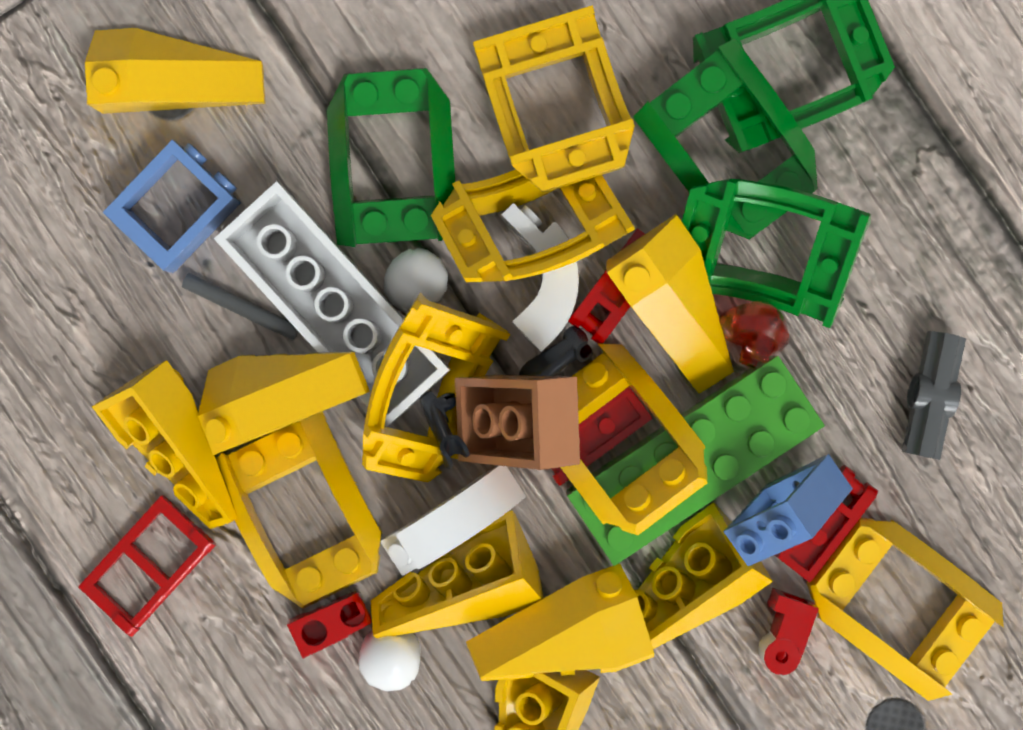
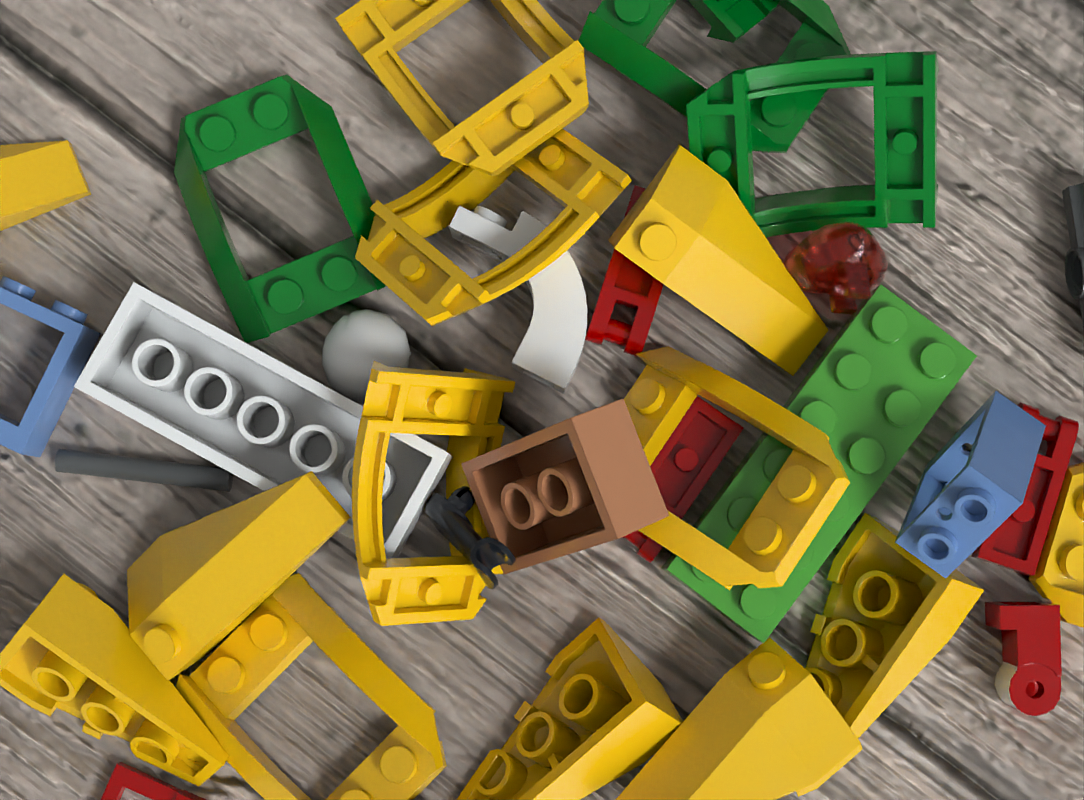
camera: 20 degrees left, 5 degrees down
(453, 520) = (524, 658): white arch -> none
(560, 355) = (593, 384): black piece -> none

